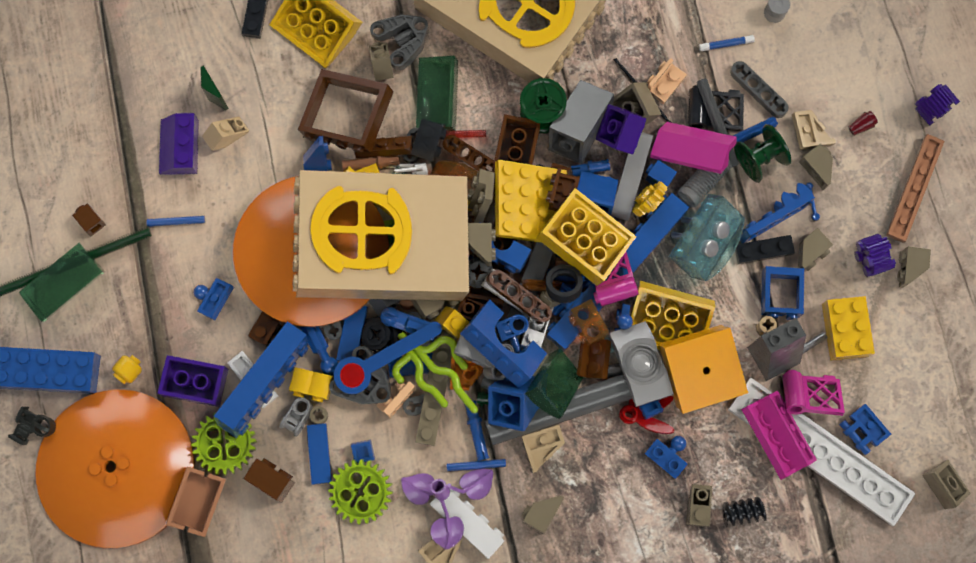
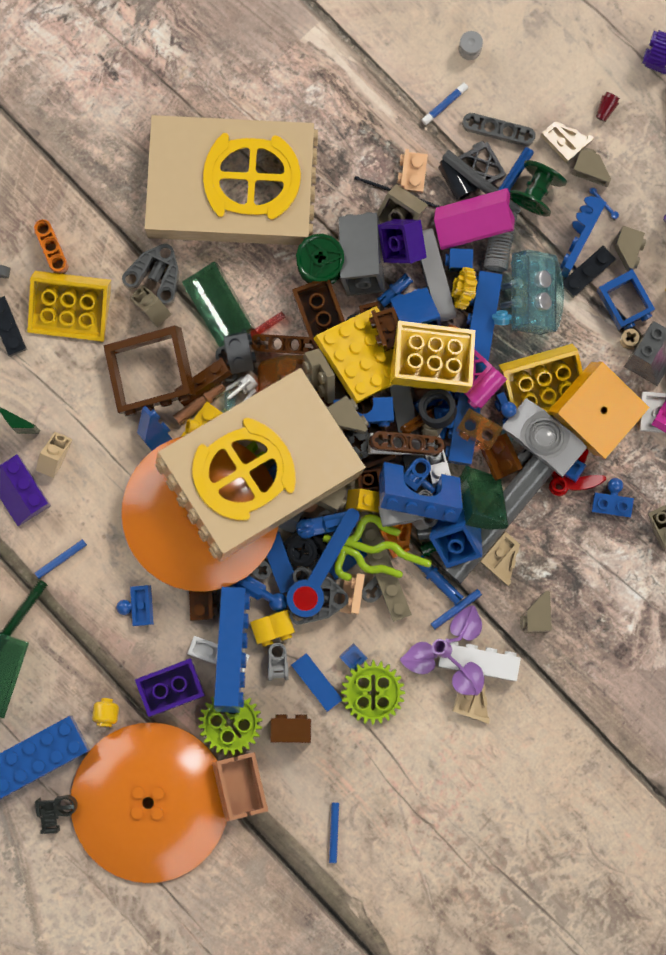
camera: 30 degrees left, 5 degrees up
(313, 417) = (299, 645): dark tan bush -> none
(666, 241) = (501, 317): none -> dark azure plate

